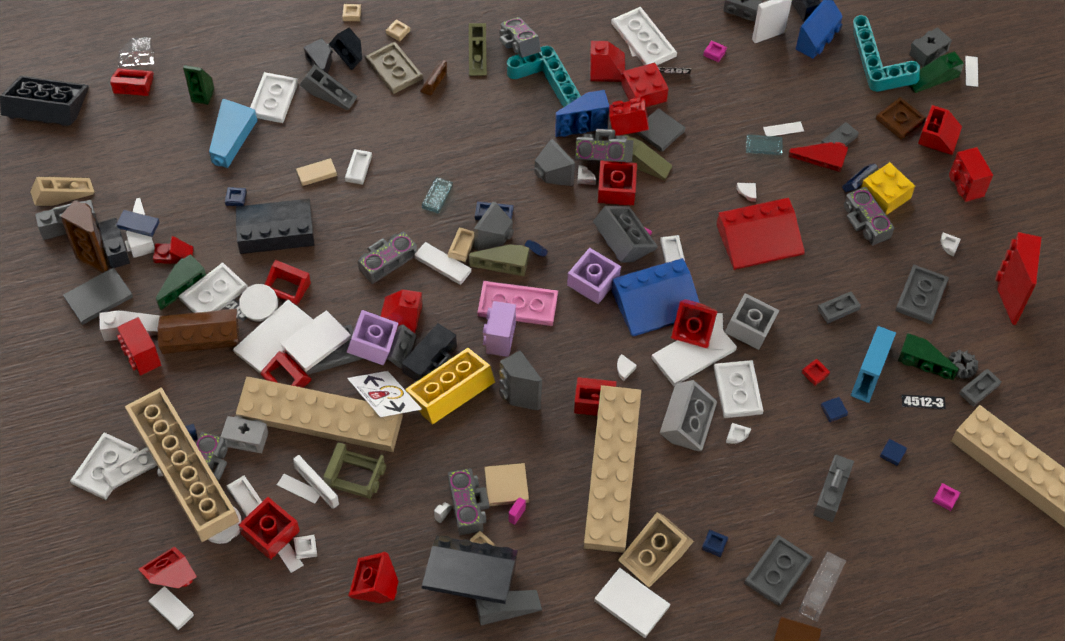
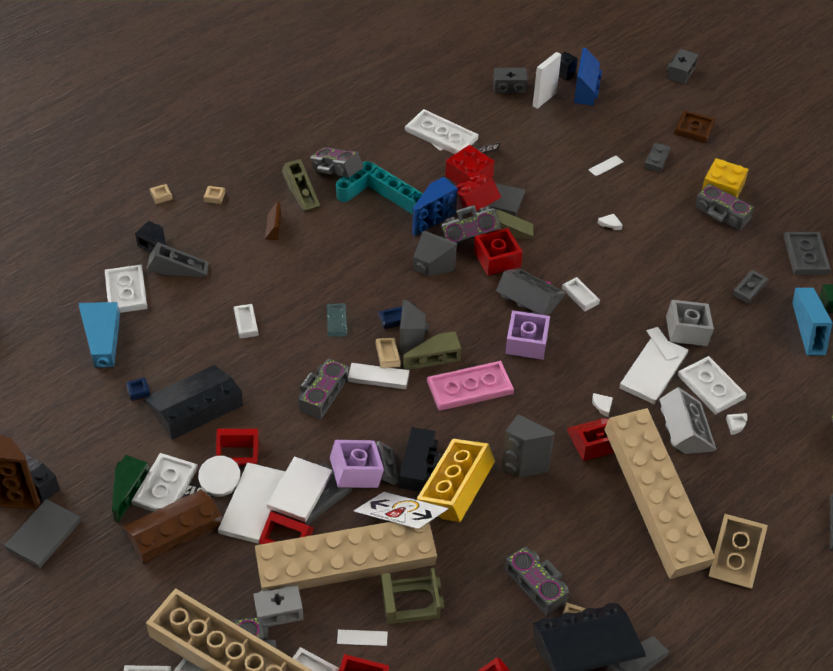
camera: 25 degrees left, 10 degrees down
(111, 320) = (93, 547): white slope -> none
(138, 223) = (54, 444): tile -> none
(138, 346) = (119, 562): red brick -> none
(139, 243) = (58, 455): white slope -> none
(172, 252) = (101, 463): red slope -> none
(199, 84) = (47, 297): dark green slope -> none
(316, 172) = (207, 339): tan tile -> none
(316, 482) = (378, 622): white tile -> none
(348, 47) = (178, 222): black slope -> none
(394, 67) = (229, 226): dark tan tile -> none
(403, 308) = (367, 425): red slope -> none
(442, 511) = (519, 600): white tile -> none
(499, 328) = (473, 410): lavender brick -> none
(506, 484) = (563, 549): tan tile -> none
(517, 510) = (590, 569): dark pink tile -> none
(537, 248) = (460, 331): dark blue tile -> none
(585, 176) = (464, 258): white tile -> none
(606, 62) = (421, 161): red slope -> none
(632, 602) = (747, 609): white tile -> none
(653, 295) = (592, 334): blue slope -> none
(694, 323) = (644, 341): red slope -> none
(714, 543) = (782, 525): dark blue tile -> none
(715, 51) = (509, 124): dark pink tile -> none
(760, 233) = (645, 251): red slope -> none
(764, 144) = (598, 182): clear light blue tile -> none
(815, 372) = (767, 345): red plate -> none
(826, 155) = (660, 171): red slope -> none
(834, 409) = (803, 370): dark blue tile -> none
(858, 178) = (696, 180): tile -> none
(880, 77) = (648, 94): teal beam -> none
(939, 71) = (700, 83): dark green slope -> none
(940, 130) = (733, 124): red slope -> none
(949, 243) = (800, 207): white tile -> none
(970, 174) = (784, 146): red brick -> none
(971, 71) = (724, 75): white sticker -> none

